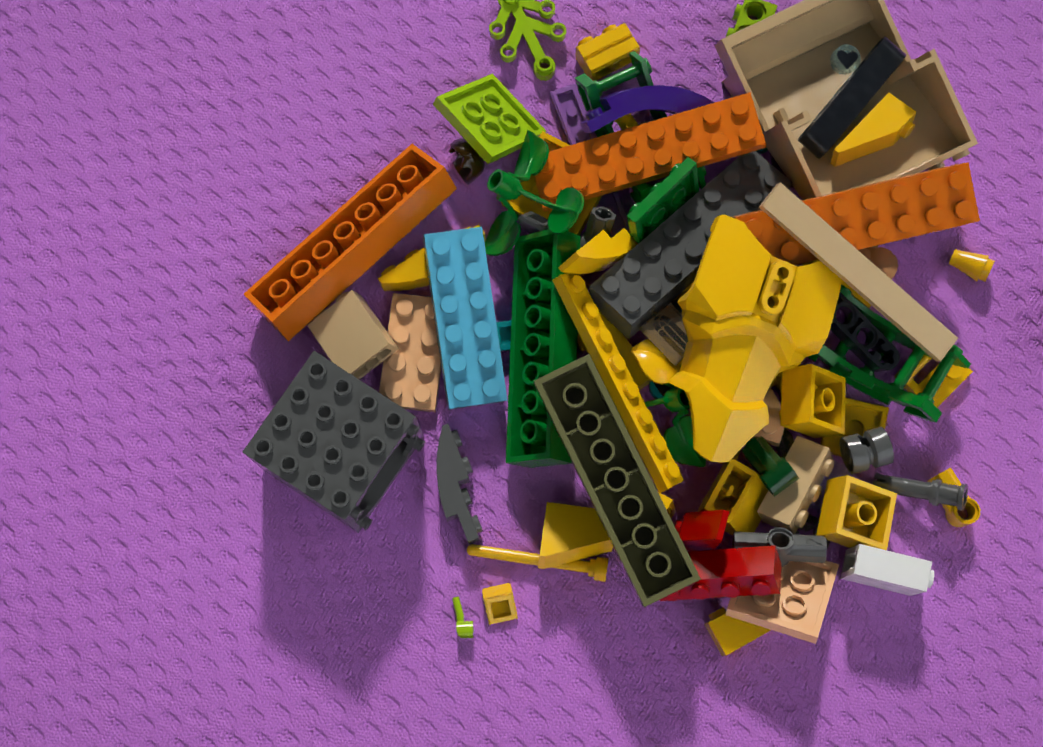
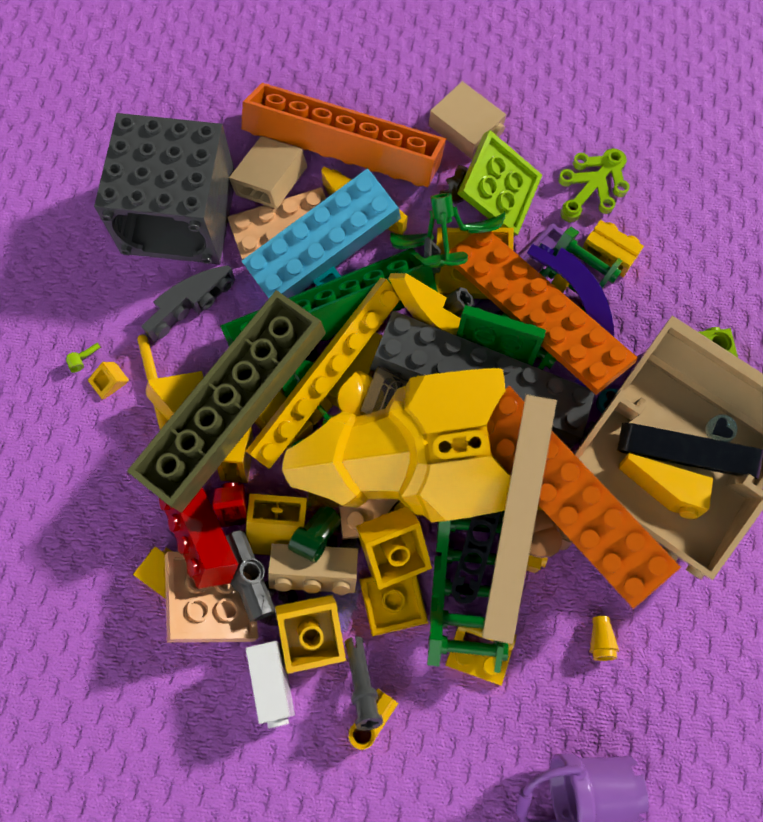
camera: 60 degrees right, 5 degrees down
(394, 111) = (465, 117): none -> tan brick
(870, 449) = (372, 615): dark grey wheel -> none

